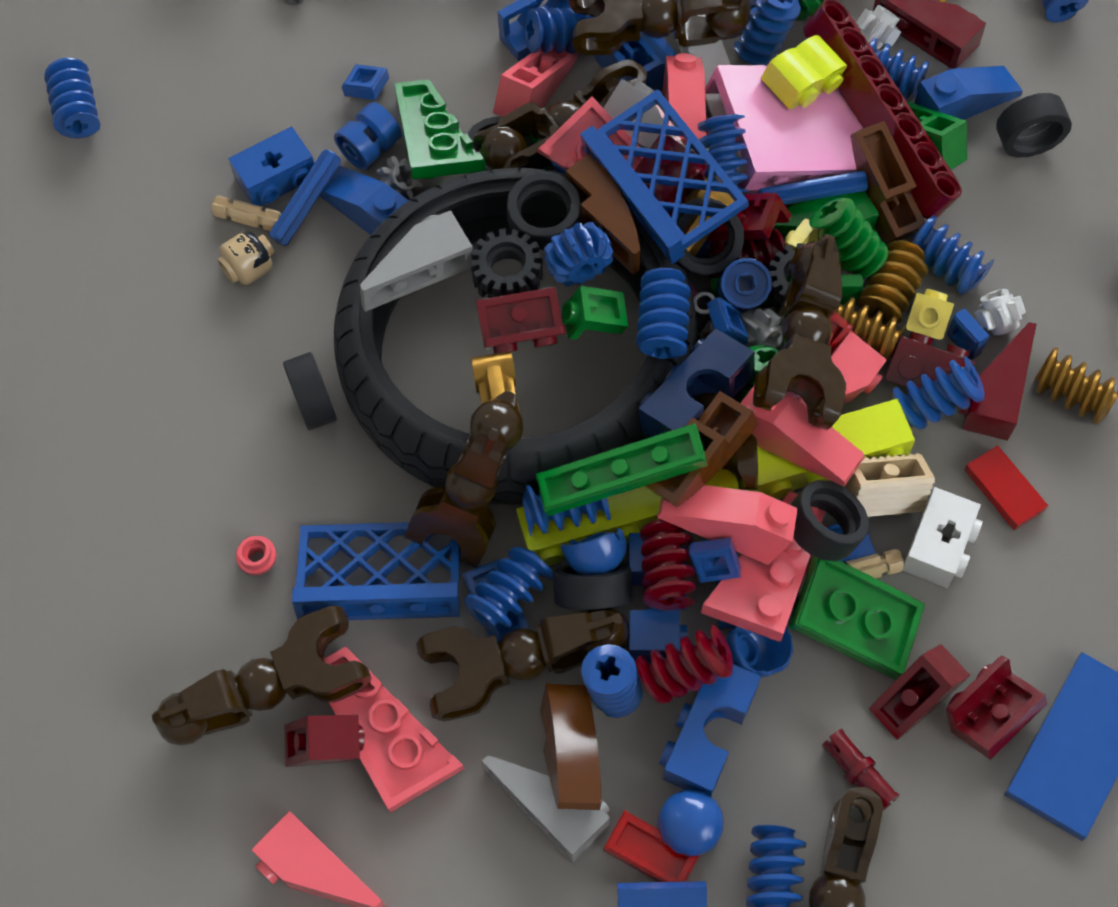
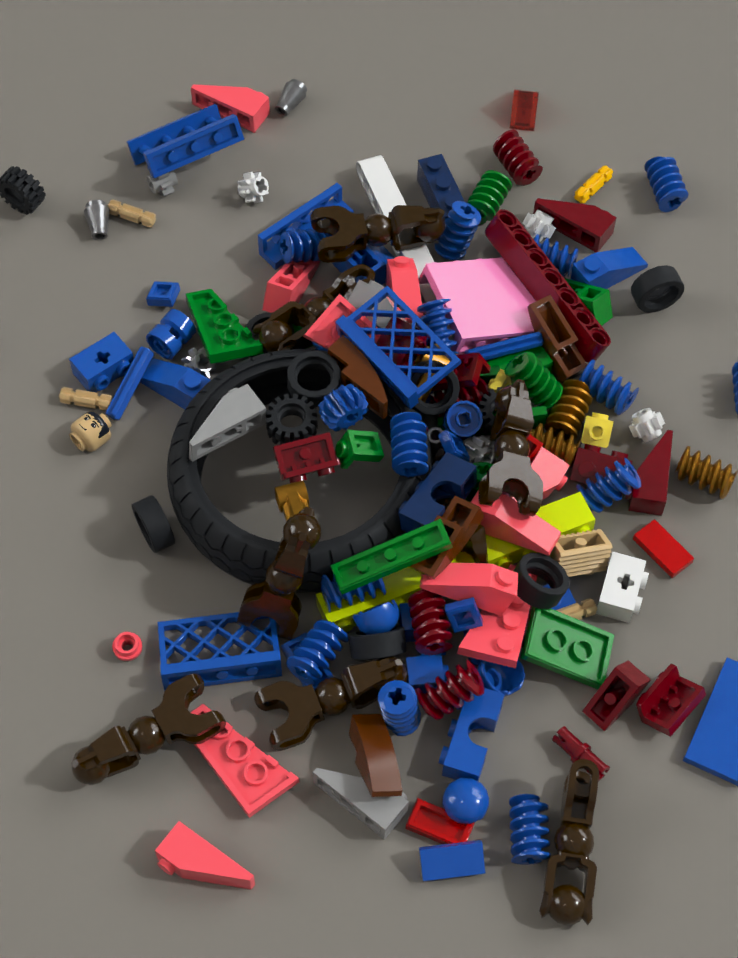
camera: 10 degrees left, 5 degrees down
(323, 740) = (195, 769): dark red slope -> none
(804, 72) = (489, 264): neon yellow brick -> none
(967, 333) = (625, 442): blue tile -> none

